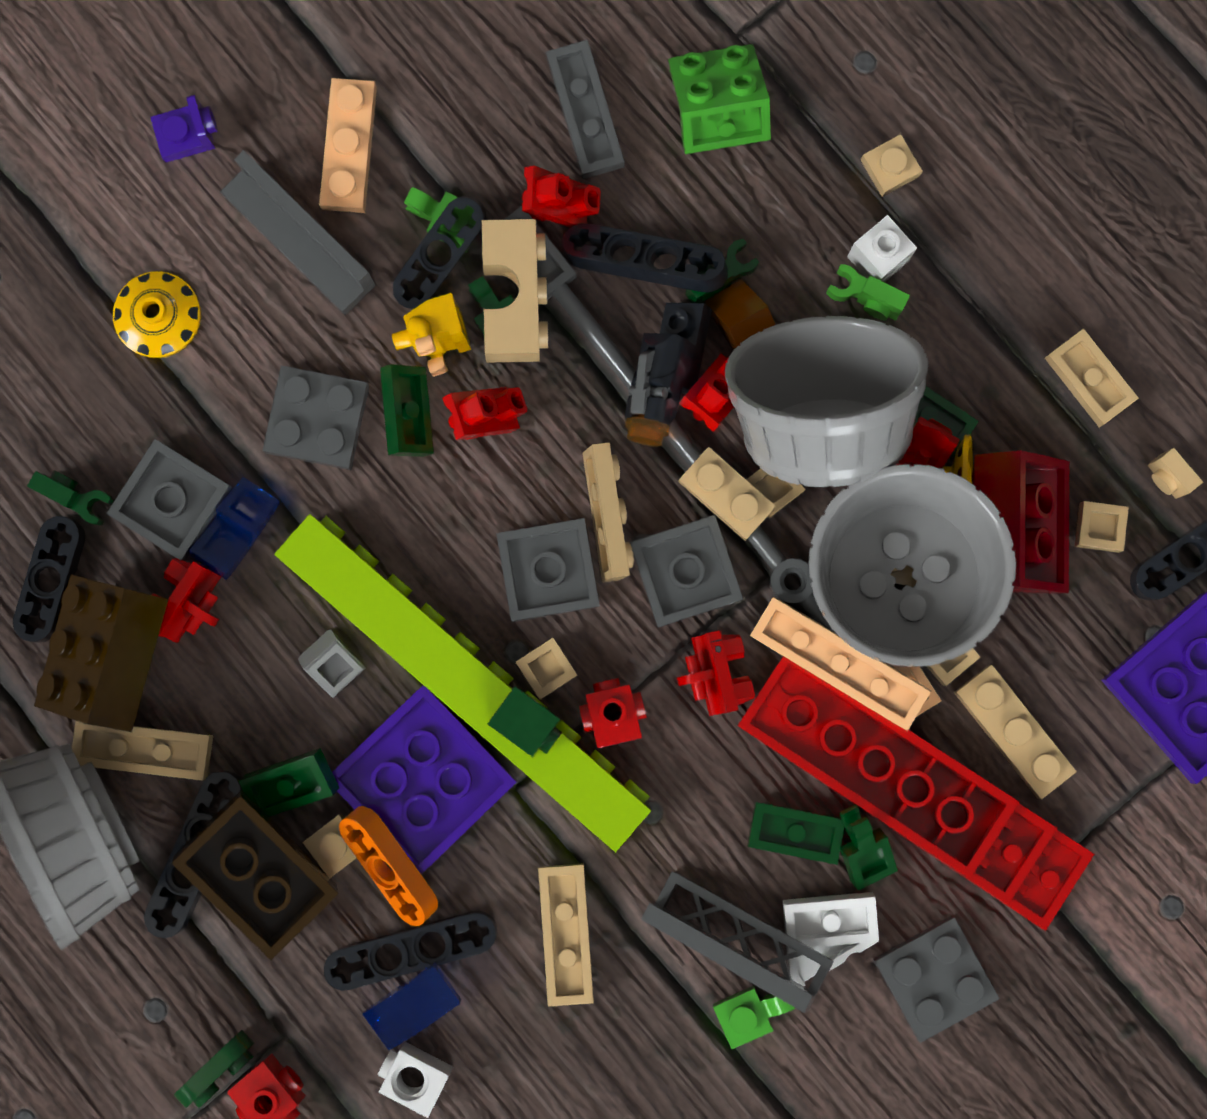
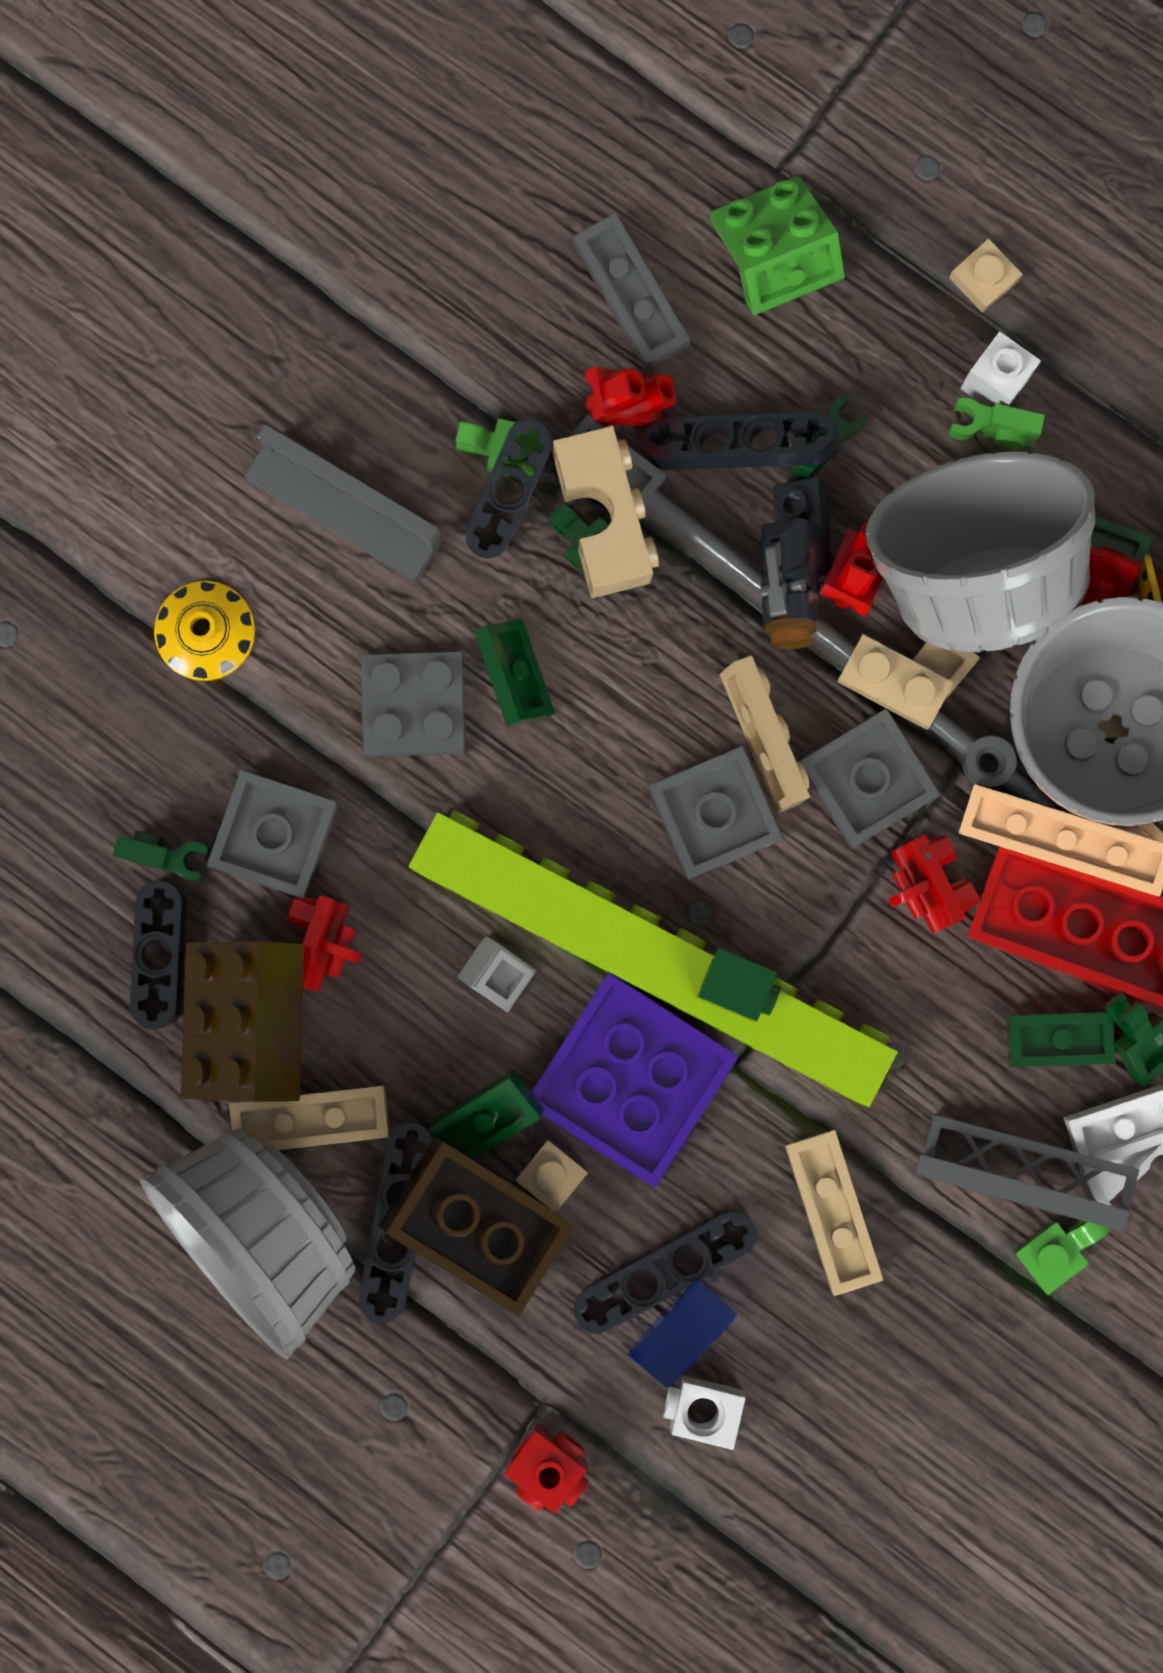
camera: 15 degrees left, 0 degrees up
(185, 130) = (187, 417): dark purple bracket -> none
(202, 1084) = (493, 1438): dark green plate -> none
(235, 528) = (352, 849): clear blue slope -> none
(348, 145) = (374, 392): light nougat plate -> none
(402, 885) = (657, 1212): orange beam -> none
(434, 330) = (523, 576): yellow piece -> none
(485, 411) = (603, 653): red hips -> none
(546, 668) = (740, 923): tan plate -> none
(617, 731) = (846, 960): red brick -> none
(739, 313) = (859, 479): reddish brown slope -> none

